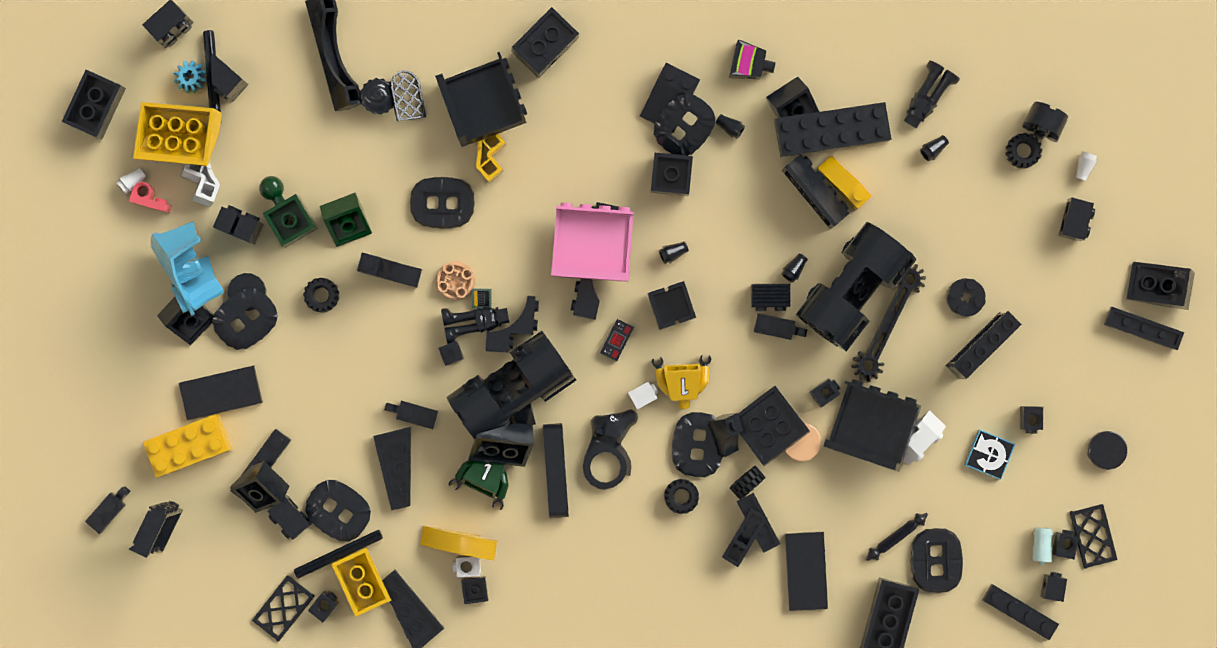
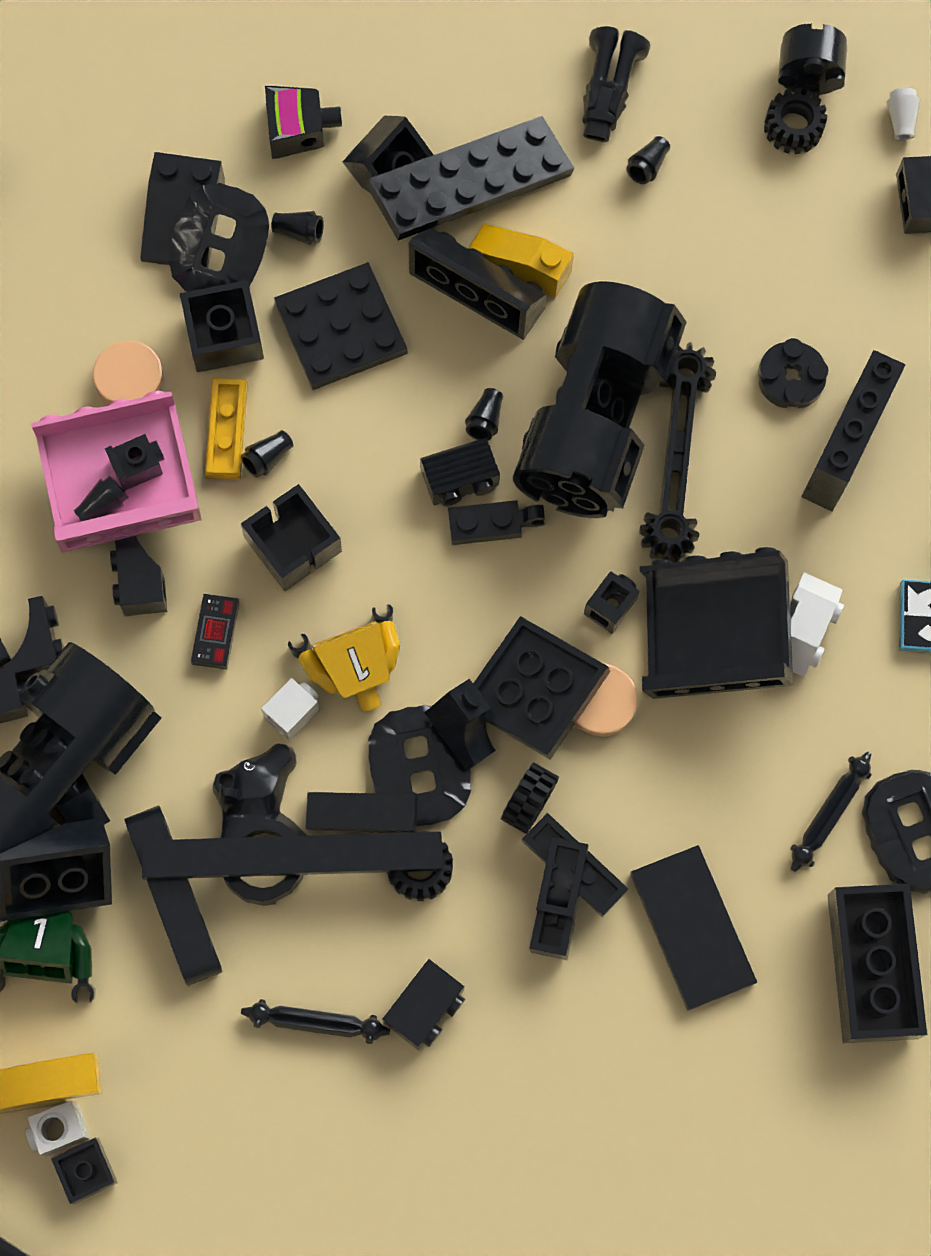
camera: 20 degrees left, 15 degrees down
(580, 258) = (101, 500): none -> black cone
(597, 246) = (135, 472): none -> black brick
(606, 555) = (315, 1021): none -> black wheel
(613, 183) = (127, 371): none -> light nougat tile
(620, 473) = (291, 855): none -> black tile
(656, 229) = (226, 429): none -> yellow tile
(661, 460) = (361, 811): none -> black tile
(661, 566) = (424, 1005): none -> black piece
(734, 190) = (340, 325): none -> black plate

